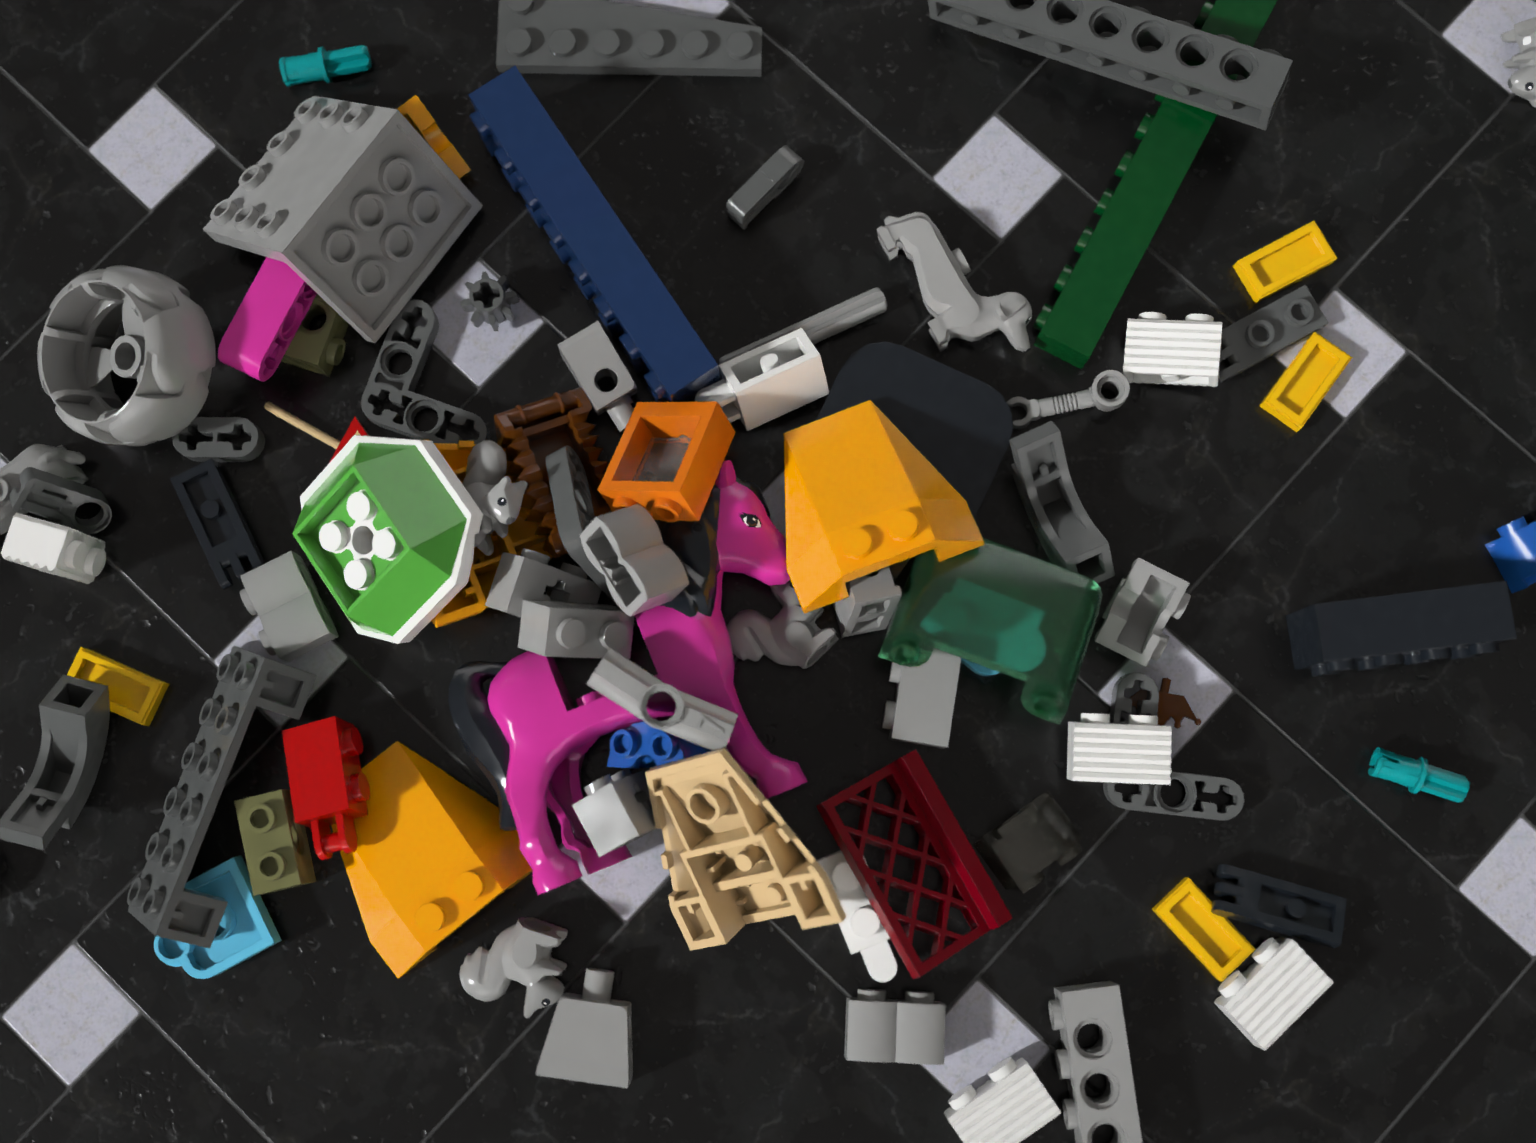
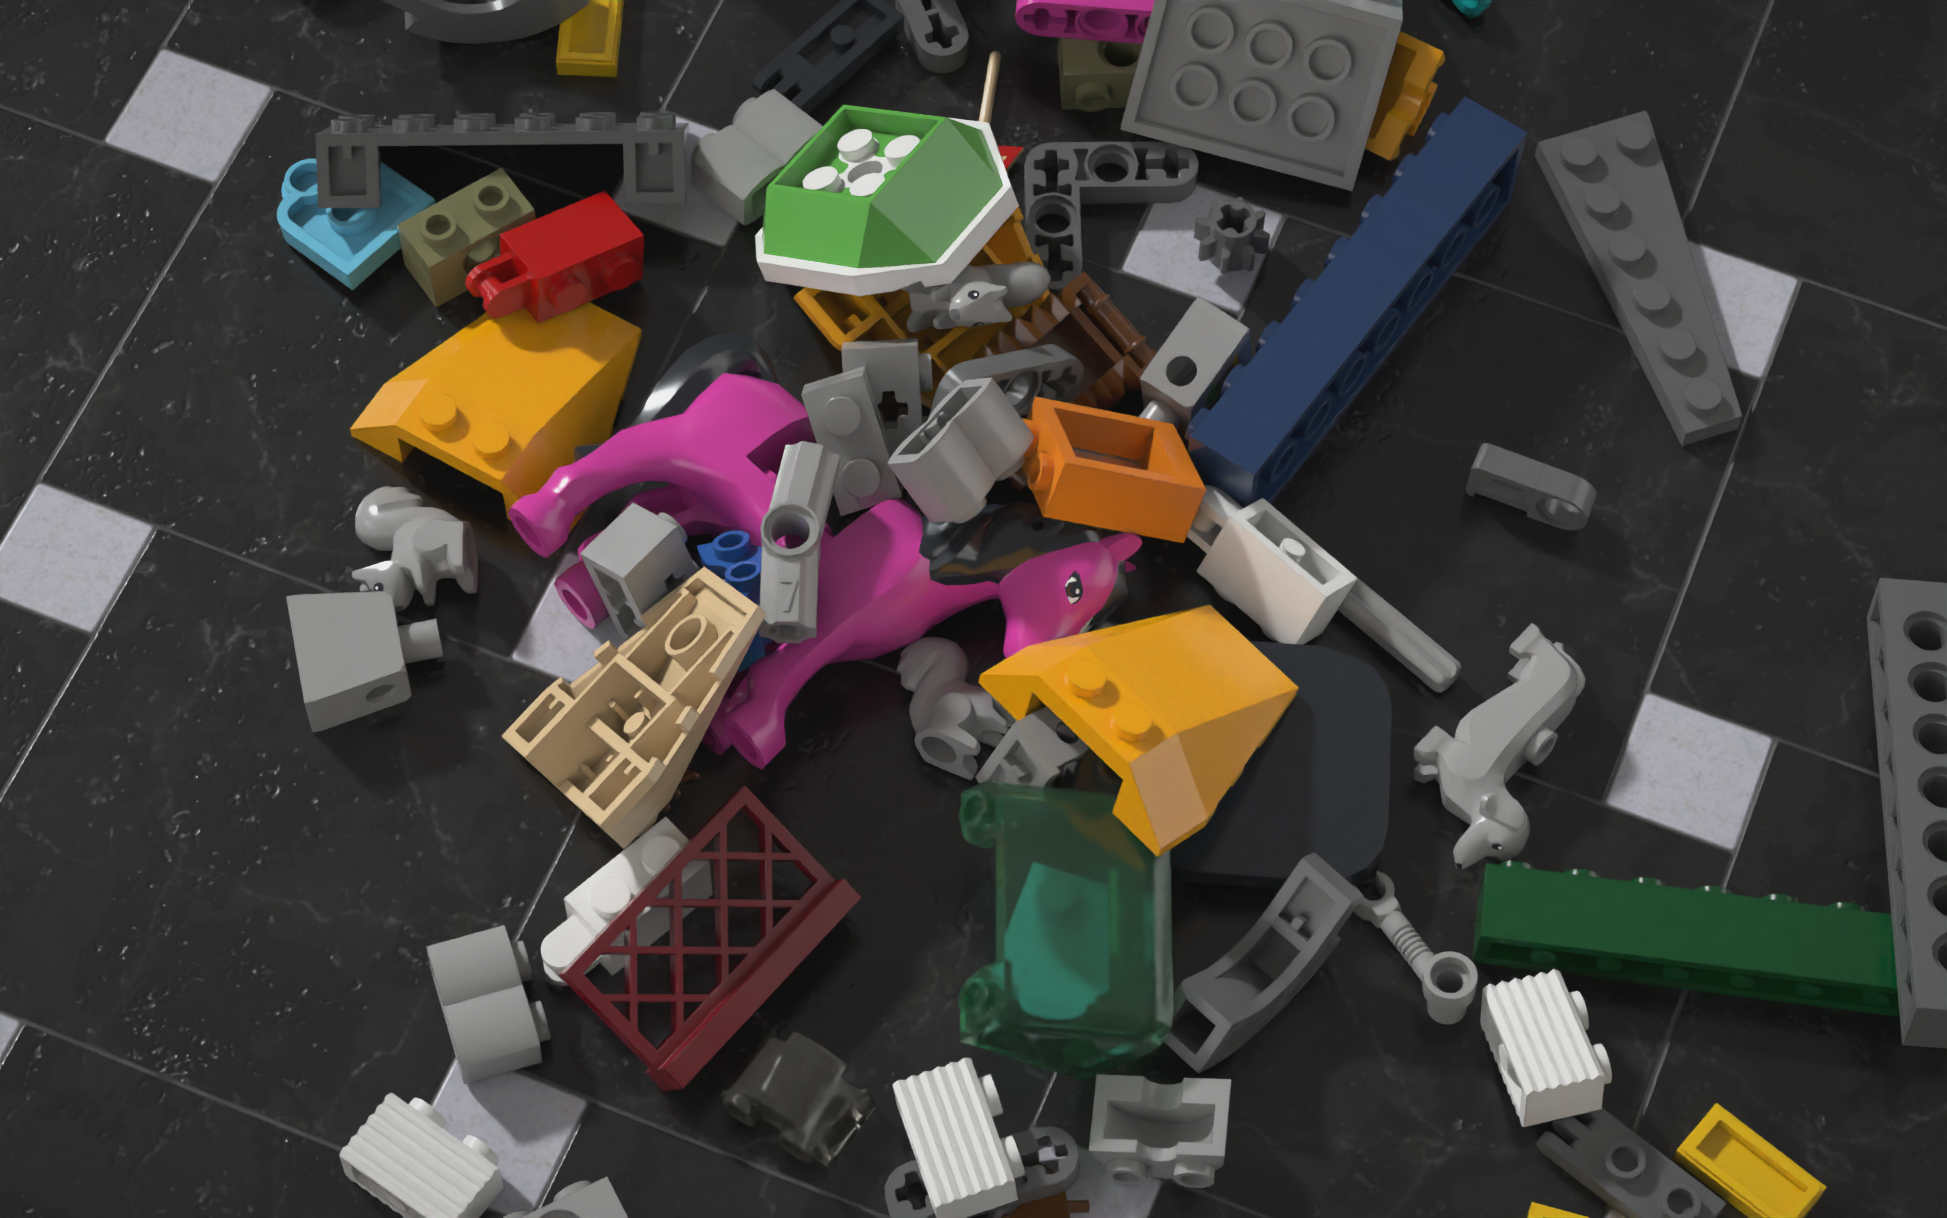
camera: 65 degrees right, 20 degrees down
(923, 701) = (931, 896): light grey brick -> none

